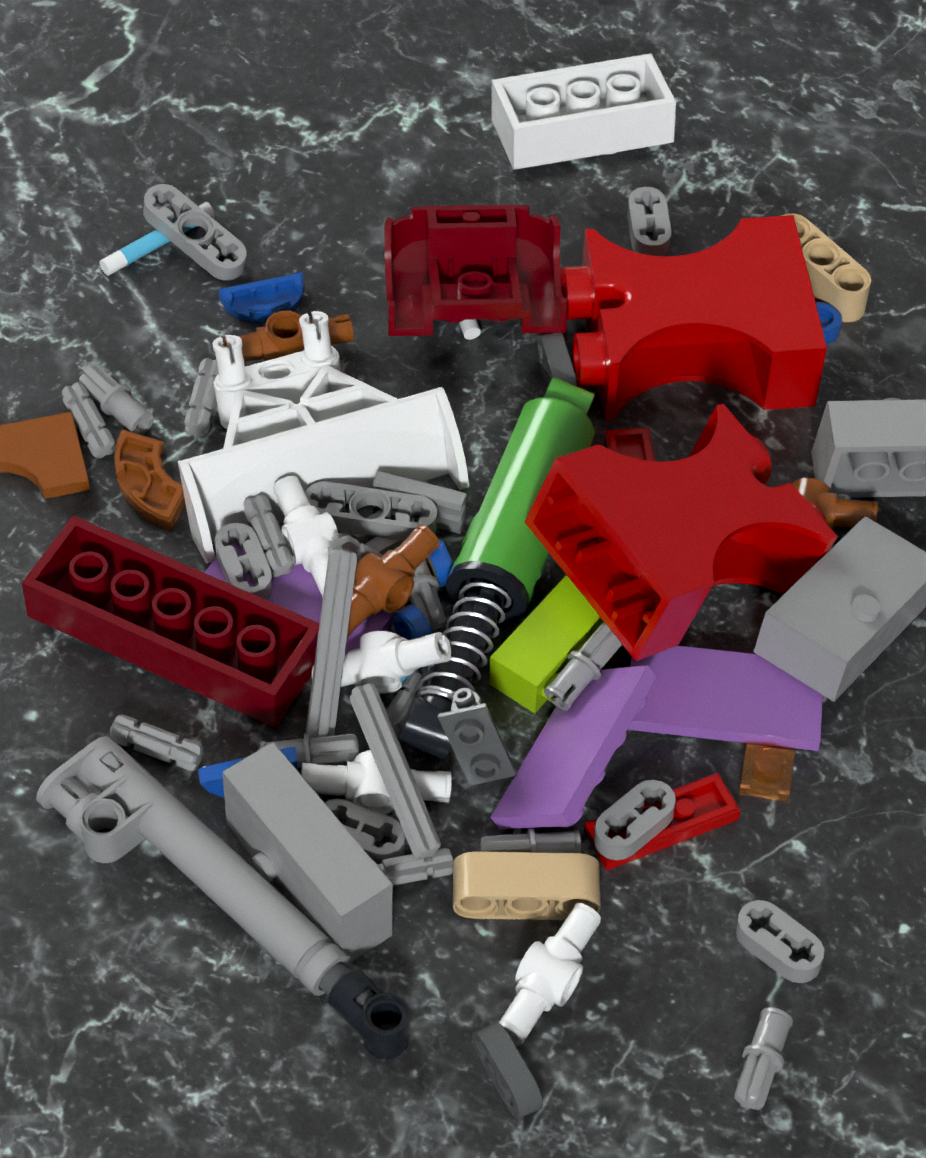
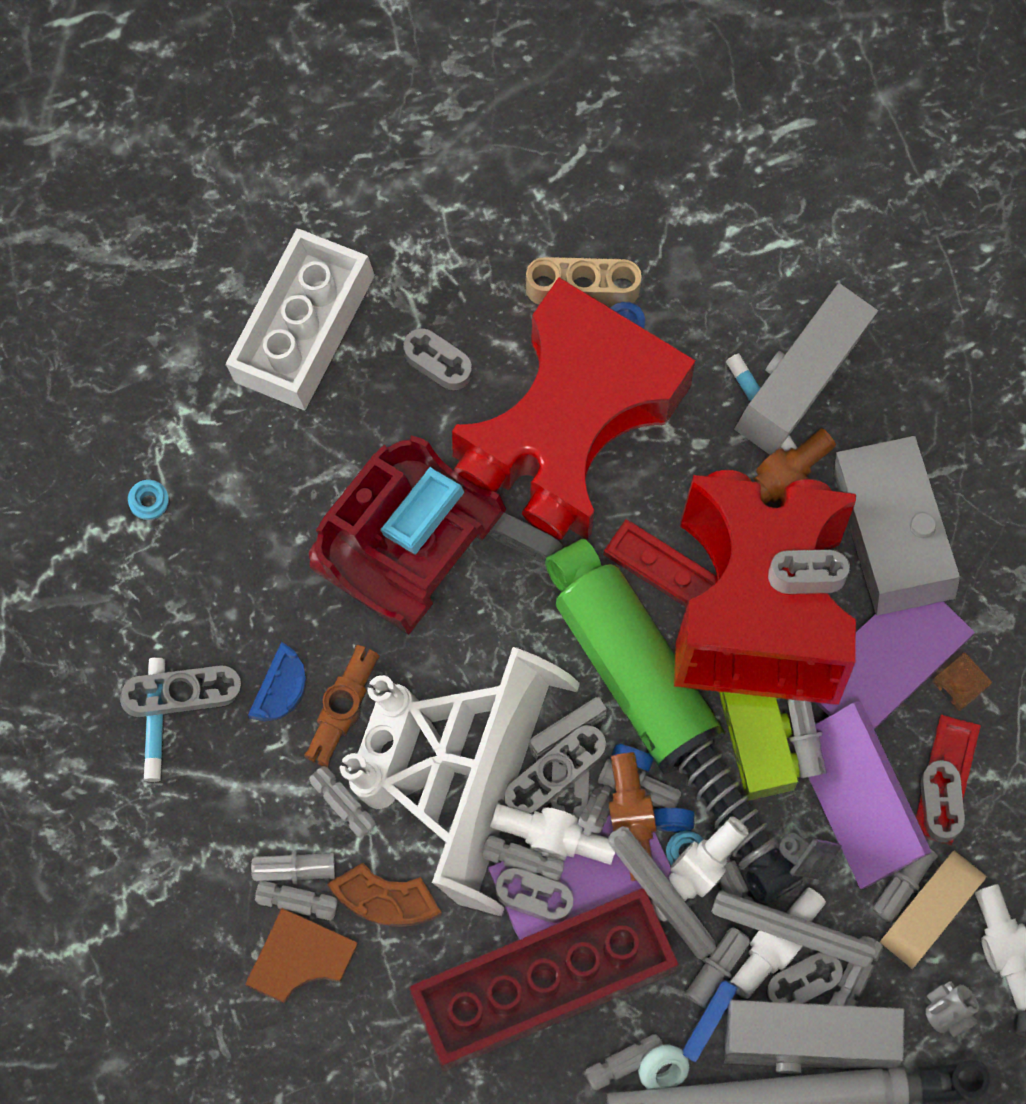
camera: 50 degrees left, 20 degrees up
(187, 757) = (657, 1059): none -> light aqua piece
(336, 121) = (143, 489): none -> medium azure plate
(443, 961) = (952, 1009): none -> light grey gear
(500, 266) = (422, 510): none -> medium azure tile
(719, 519) = (808, 571): none -> light grey beam

